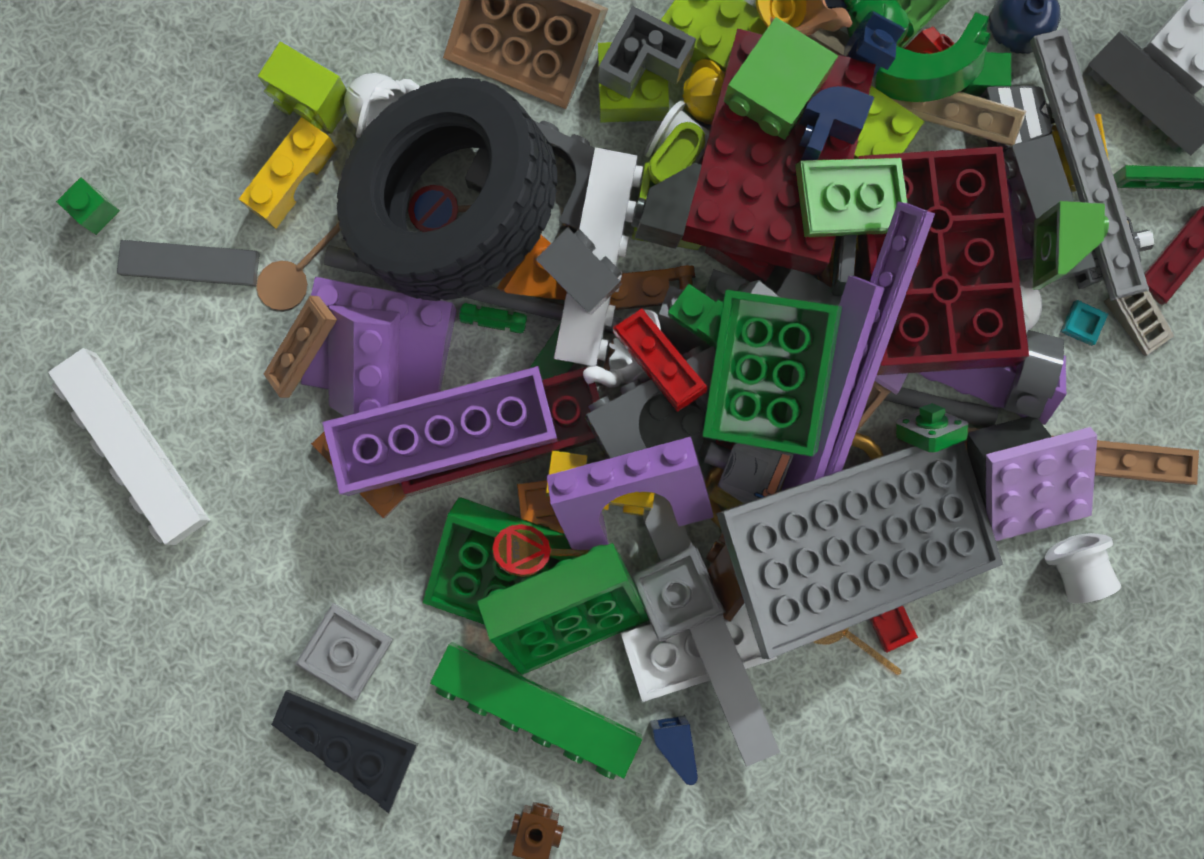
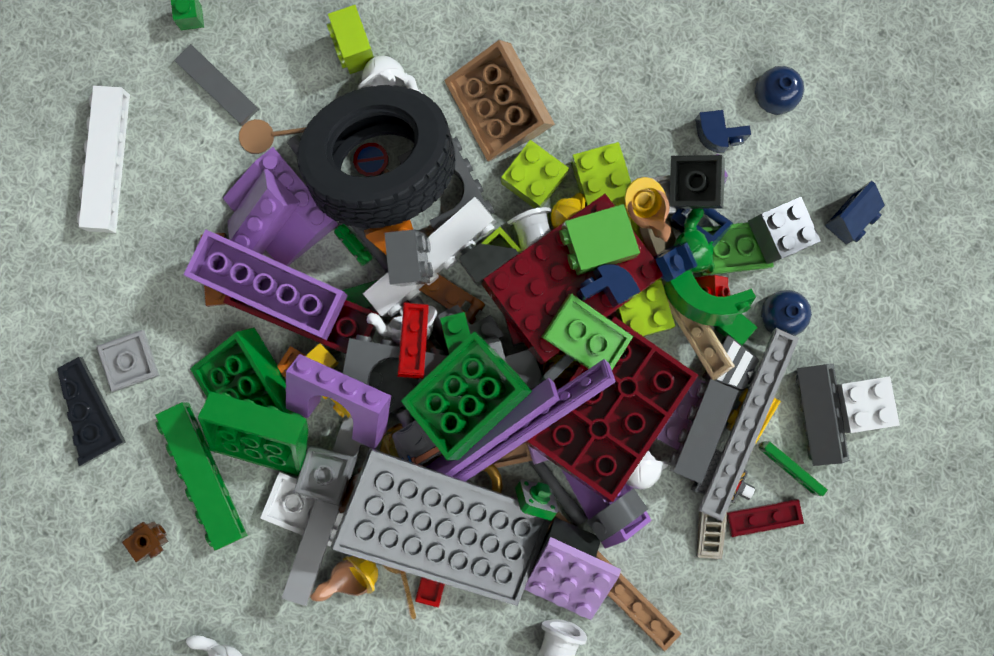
camera: 40 degrees right, 0 degrees up
(273, 188) = (292, 80): yellow arch -> none
(300, 346) = (234, 178): medium nougat tile -> none
(525, 550) = (259, 385): piece -> none
(641, 46) = (546, 160): dark grey brick -> none
(675, 742) = (255, 556): dark blue tile -> none
(677, 151) = (519, 234): lime tile -> none
(796, 682) = (350, 576): none -> nougat piece
(1065, 238) = (690, 455): bright green slope -> none
(1084, 322) = (677, 510): teal tile -> none

